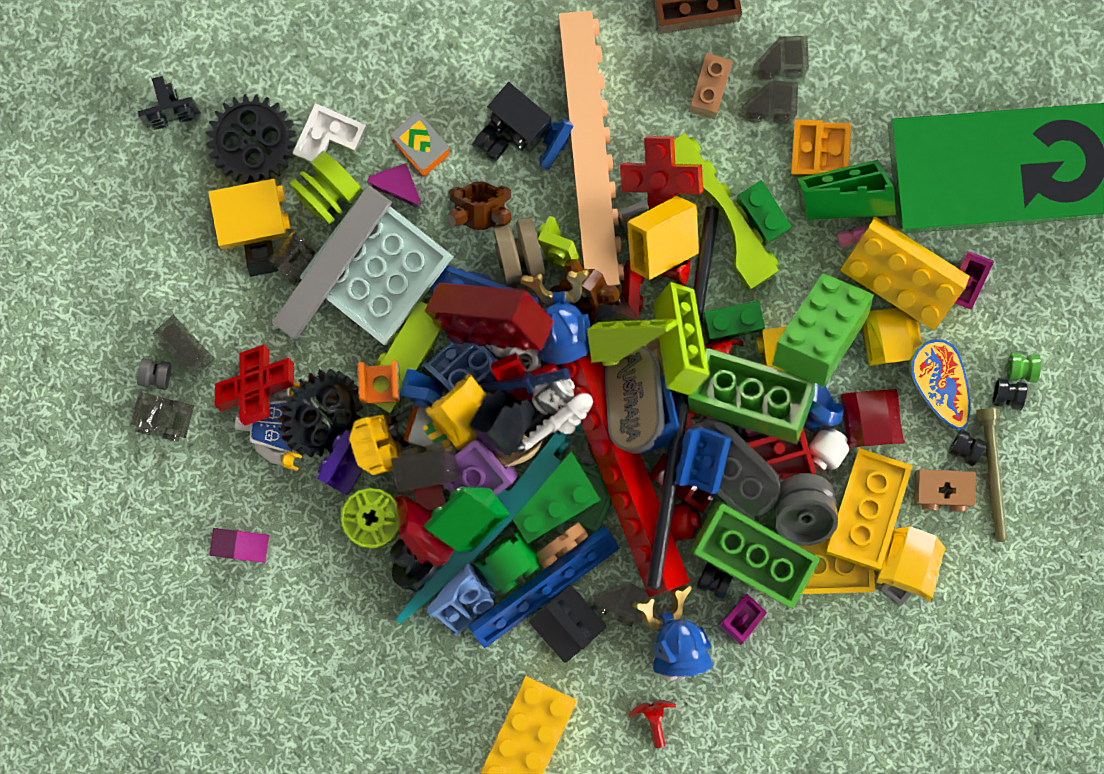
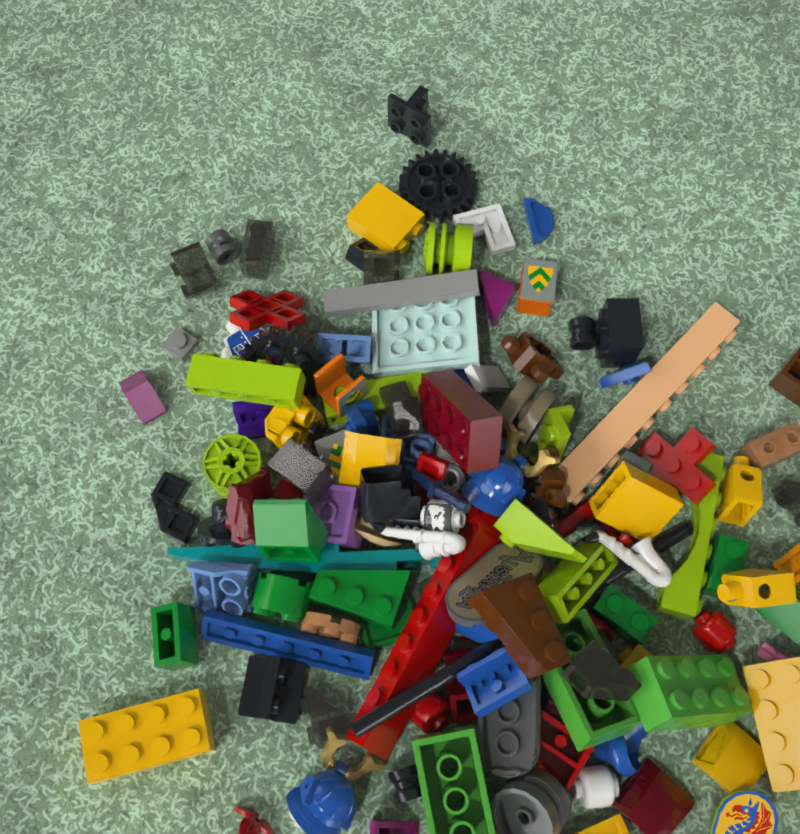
camera: 55 degrees right, 15 degrees down
(216, 479) = (180, 344): none -> light grey plate
(314, 455) = (246, 380): none -> lime brick
(342, 347) = (355, 348): none -> medium blue brick
(357, 82) = (539, 220): none -> blue plate
(368, 600) = (171, 519): none -> black tile
(437, 349) = (402, 409): none -> clear smoke slope
(466, 257) = (486, 378): none -> white tile
(469, 665) = (174, 636): none -> green brick
(684, 408) = (523, 624): none -> reddish brown wedge
(712, 269) = (640, 557): none -> white piece
(720, 145) = (740, 492): none -> yellow torso
(762, 384) = (600, 676): none -> clear smoke slope
(797, 213) = (742, 588): none -> yellow torso
(800, 264) = (714, 631): none -> red head

